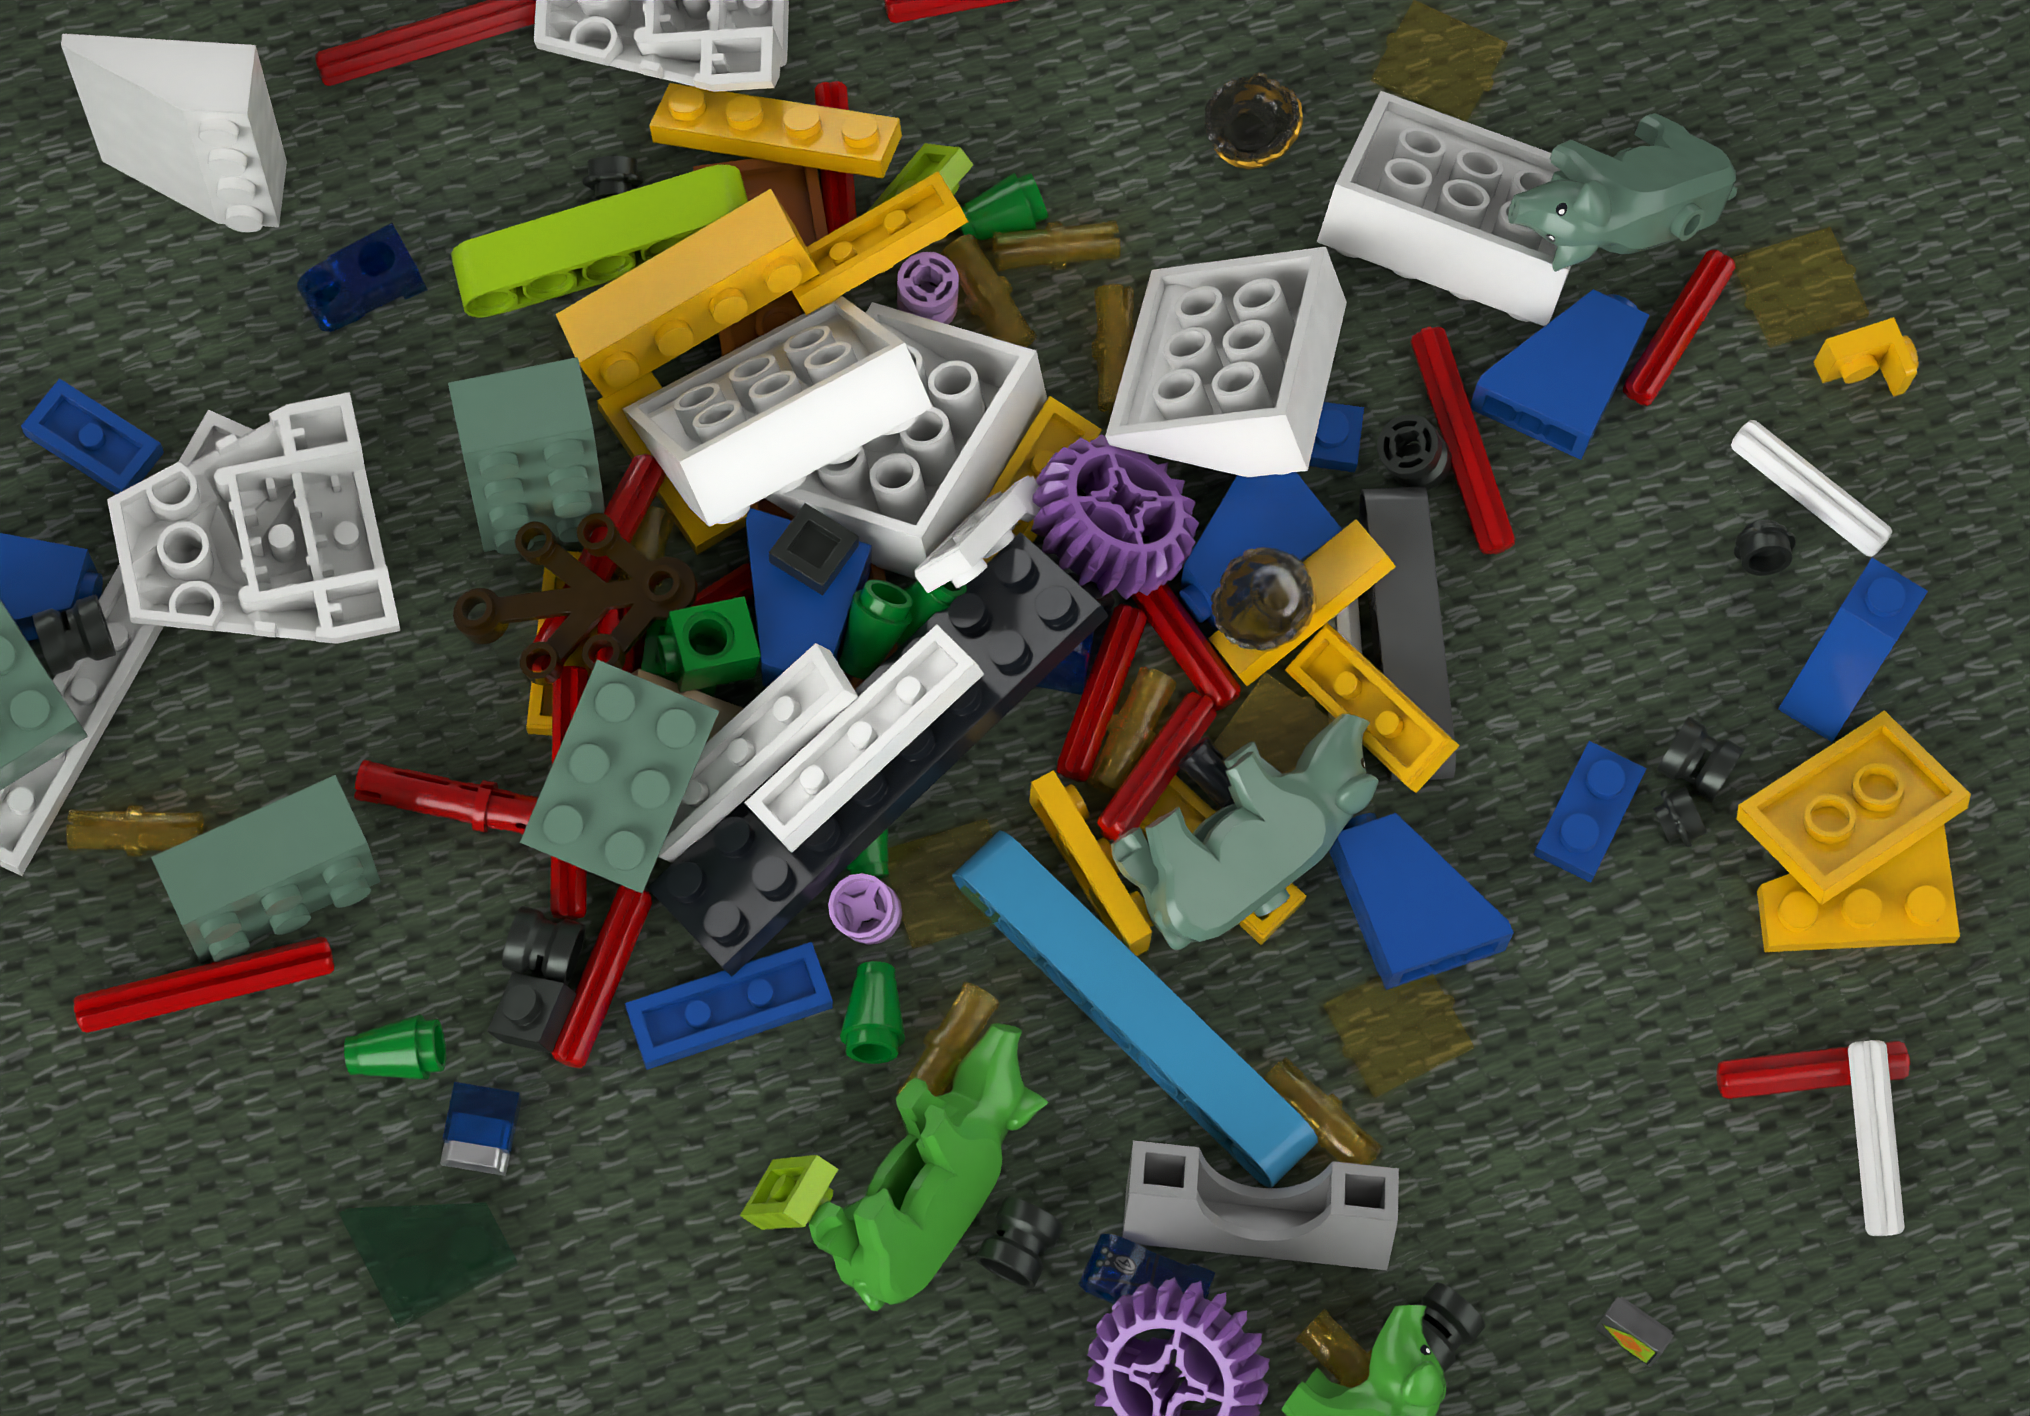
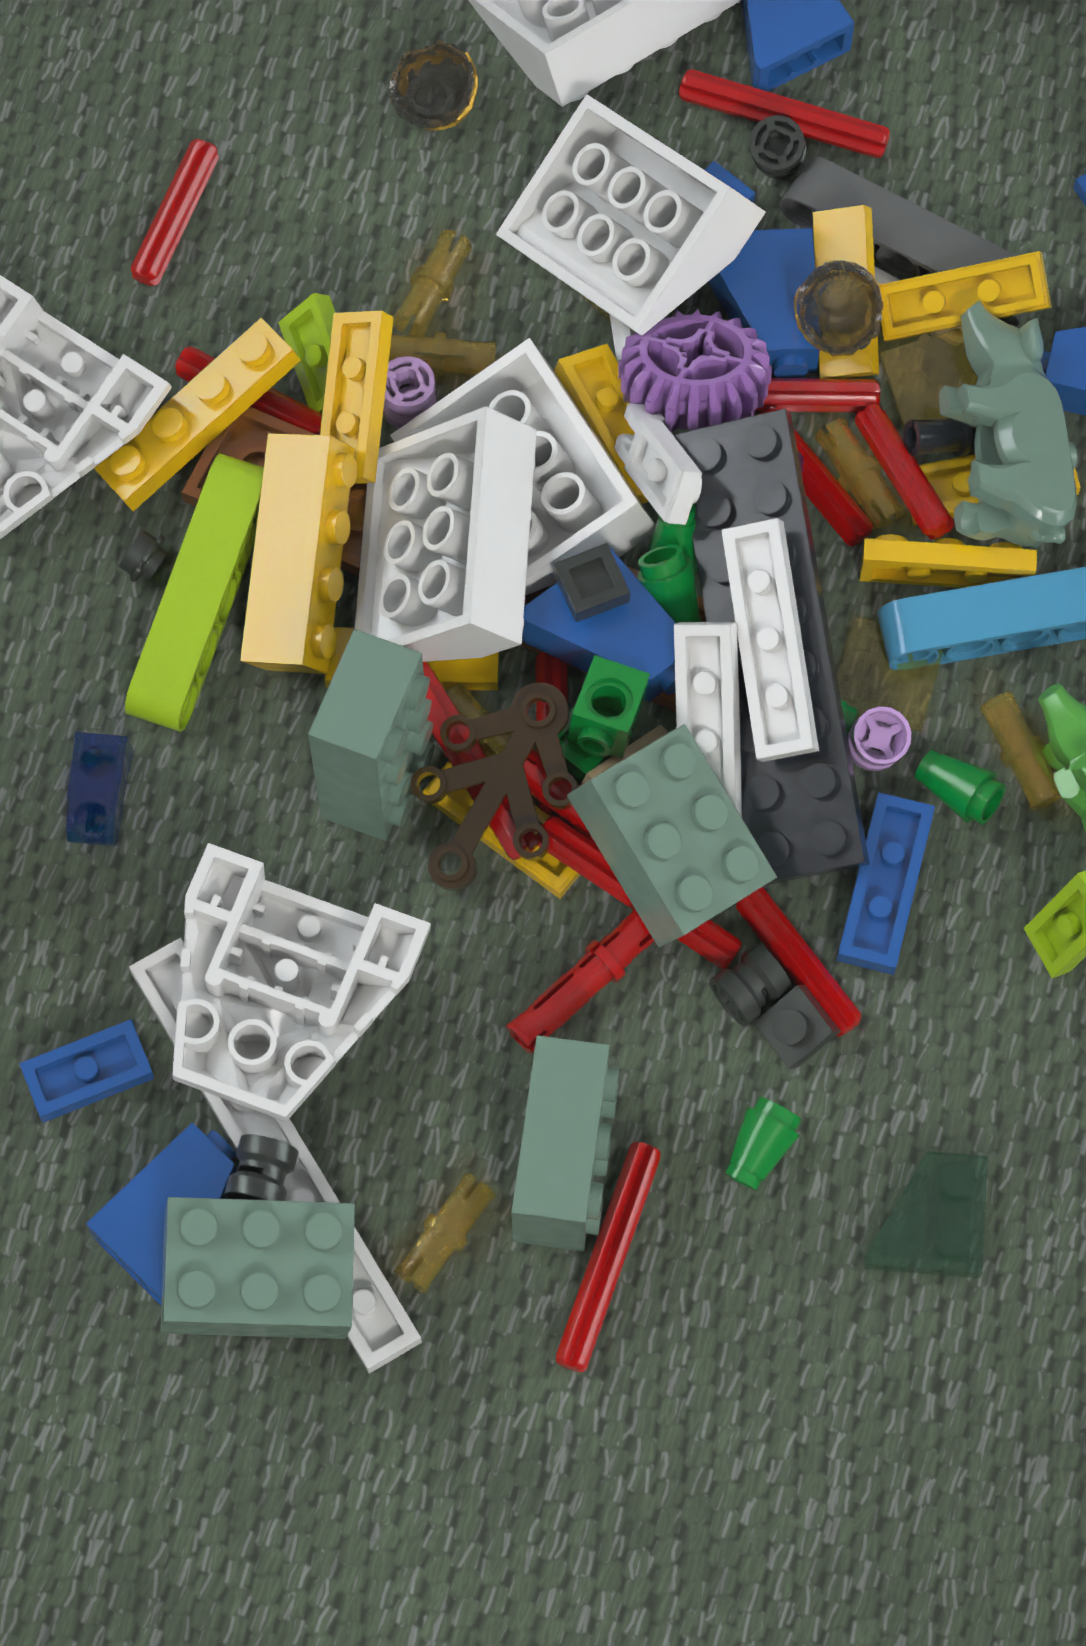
camera: 50 degrees left, 0 degrees up
(480, 1128) = (862, 1121): clear blue piece -> none
(1005, 208) = (379, 287): green cone -> none
(1112, 340) = (545, 295): clear yellow pin -> none

